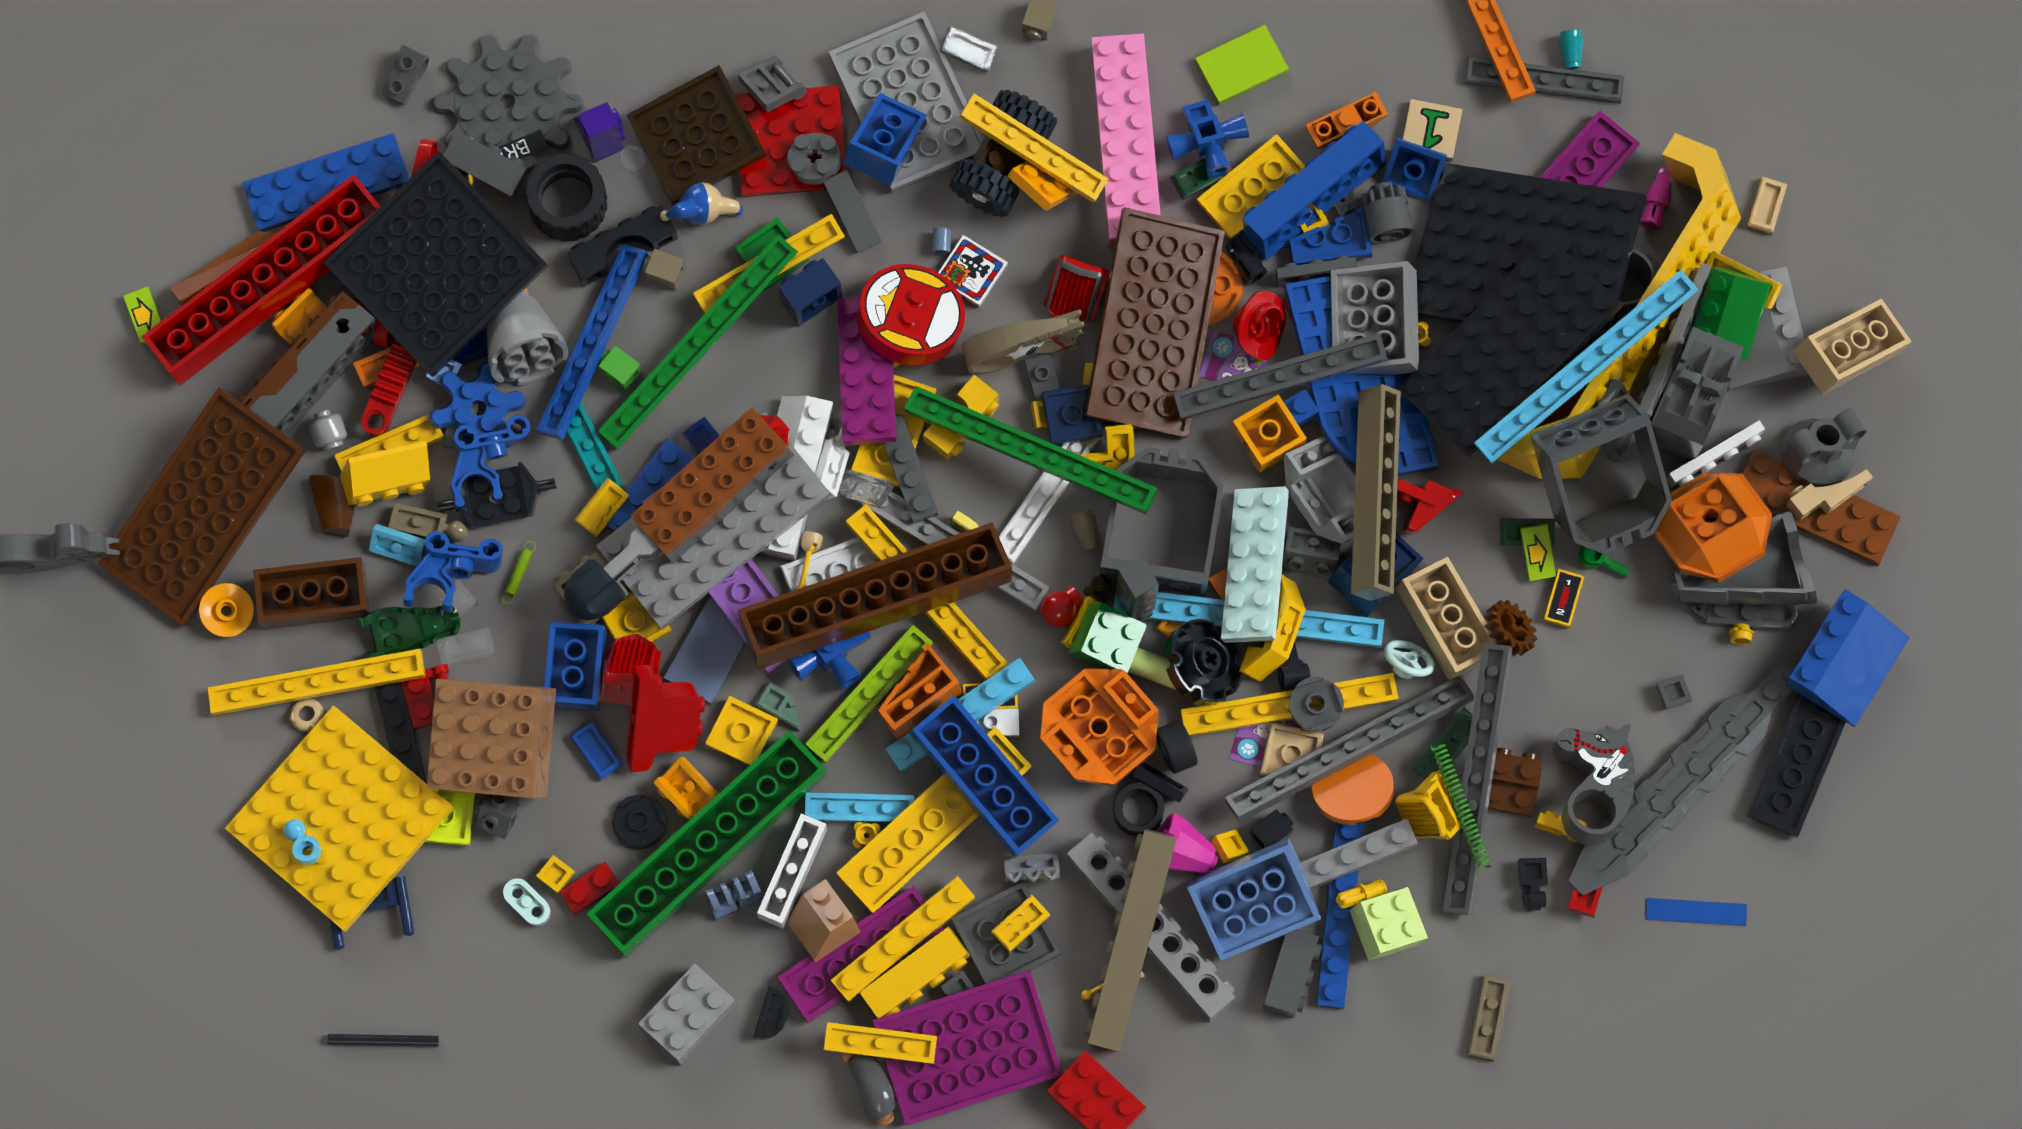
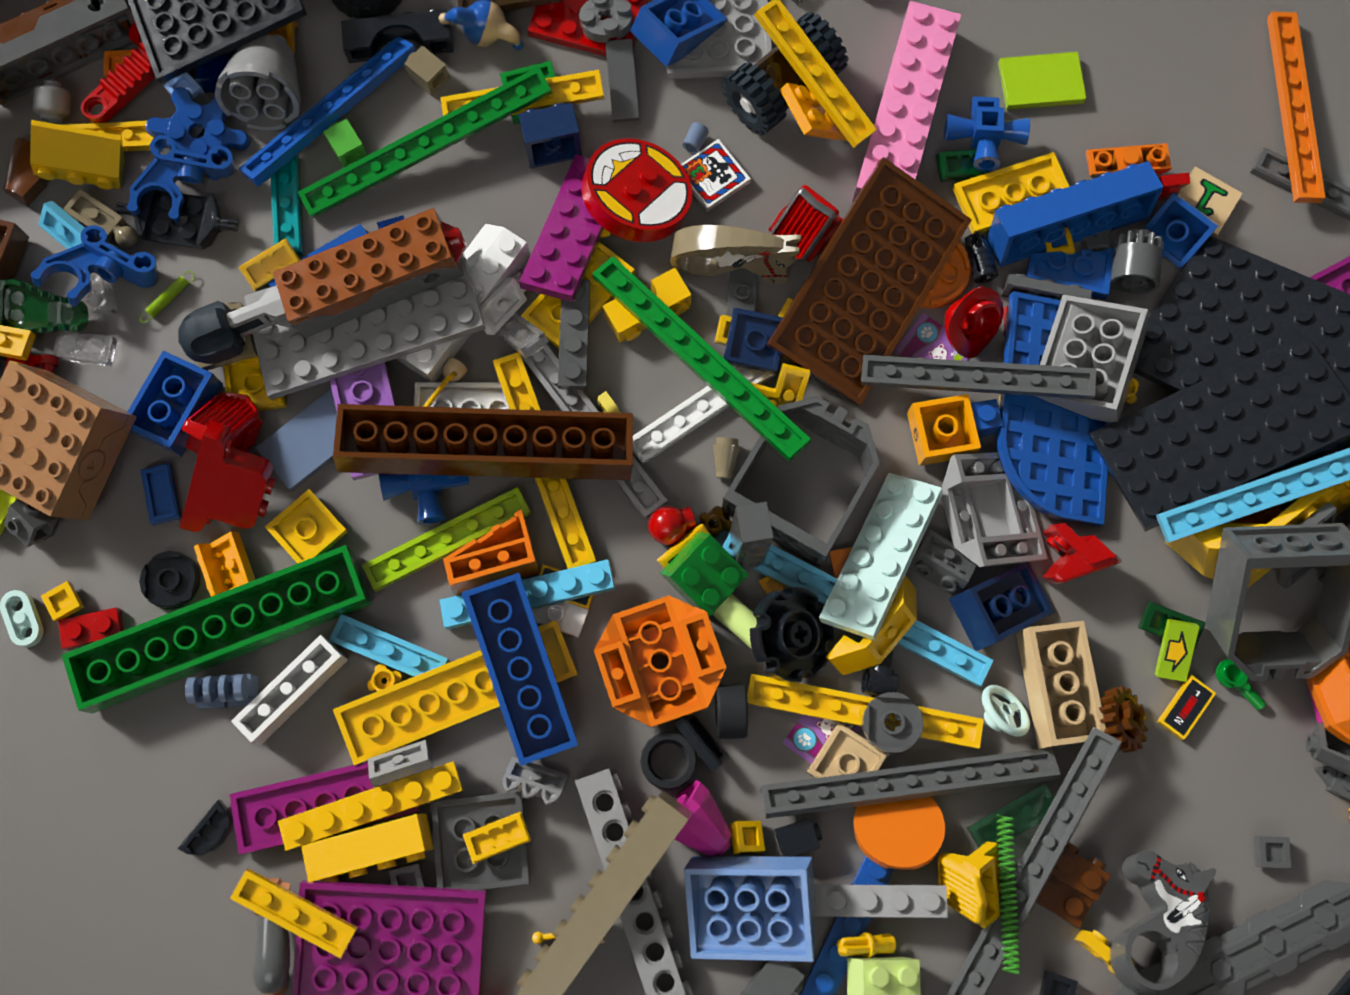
camera: 20 degrees right, 0 degrees up
(687, 1014) = (121, 797): light grey brick -> none
(779, 705) = (356, 516): sand green tile -> none
(822, 921) = (299, 754): medium nougat slope -> none
(913, 894) = (399, 763): none -> light grey plate
(1376, 492) = (1033, 530): dark tan brick -> none
(1392, 131) = (1172, 184): none -> red plate

